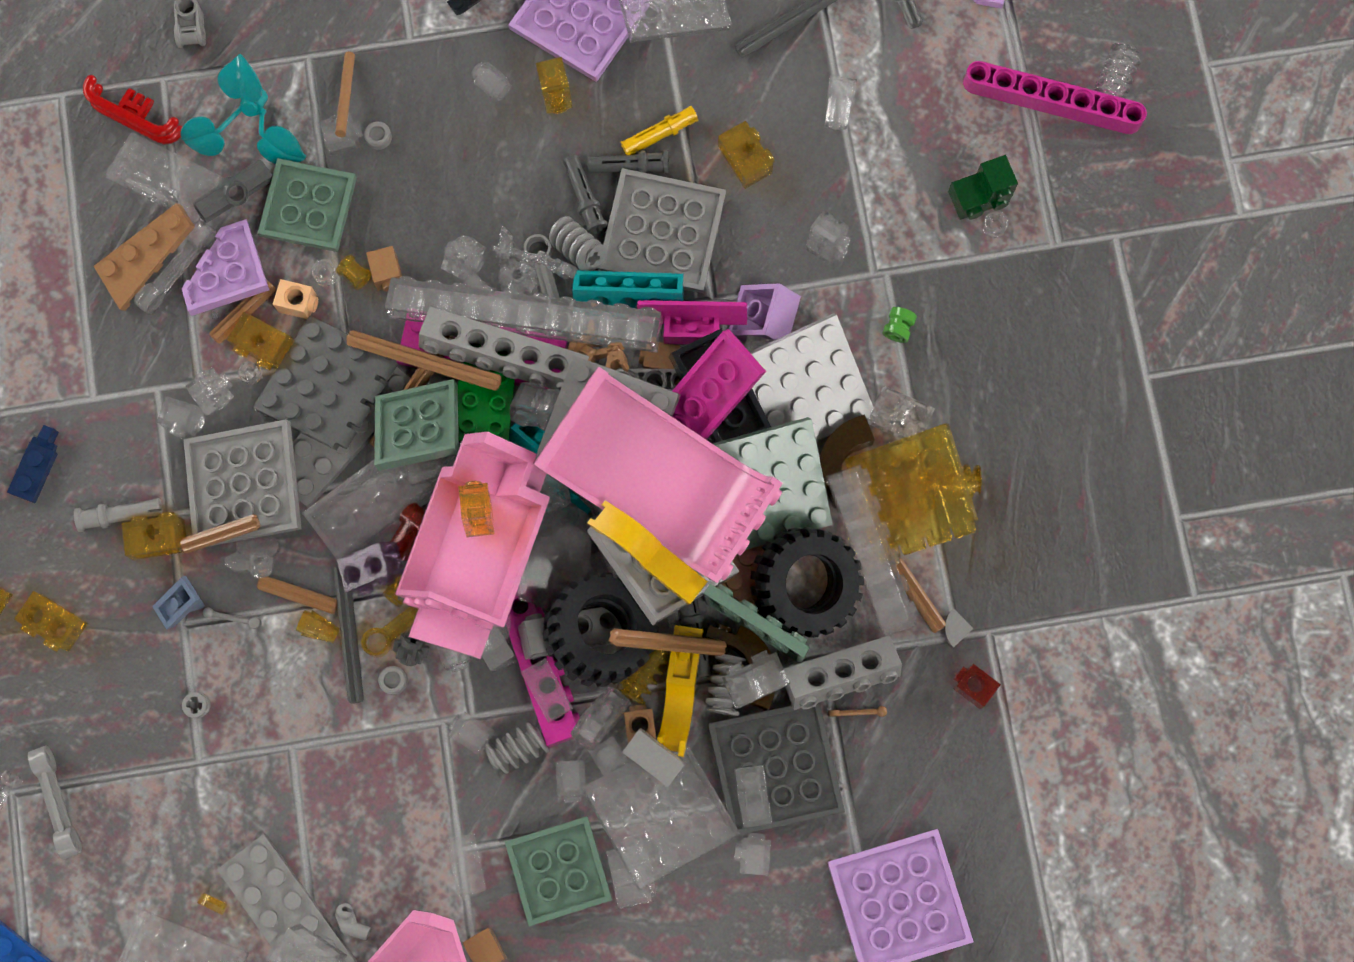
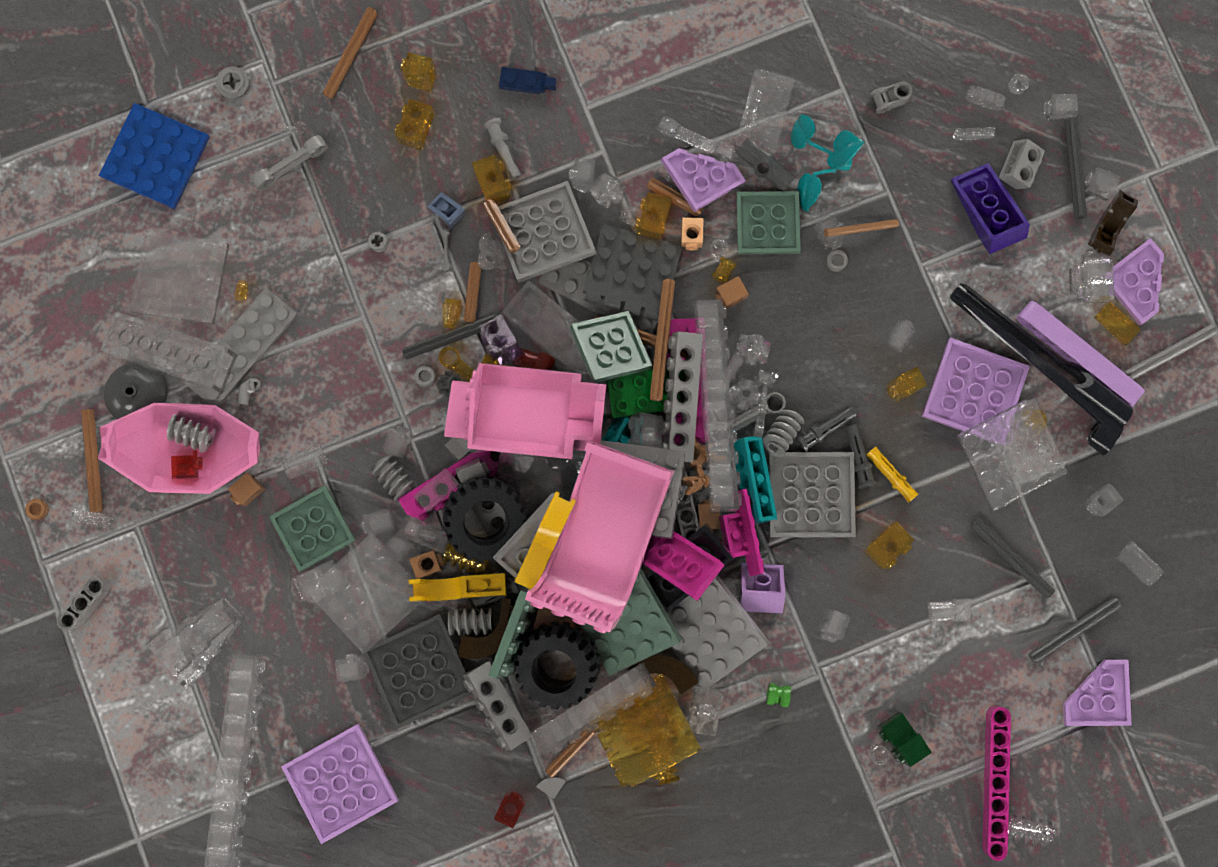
camera: 80 degrees right, 5 degrees up
(132, 113) = (809, 73): red piece -> none
(140, 256) = (699, 113): medium nougat wing -> none
(476, 509) = (550, 406): clear yellow brick -> none
(654, 757) = (403, 579): light grey tile -> none
(667, 642) = (484, 571): medium nougat axle -> none
(755, 679) = (475, 642): clear brick -> none
(757, 807) = (398, 654): clear brick -> none
(881, 711) = (477, 741): medium nougat hinge -> none

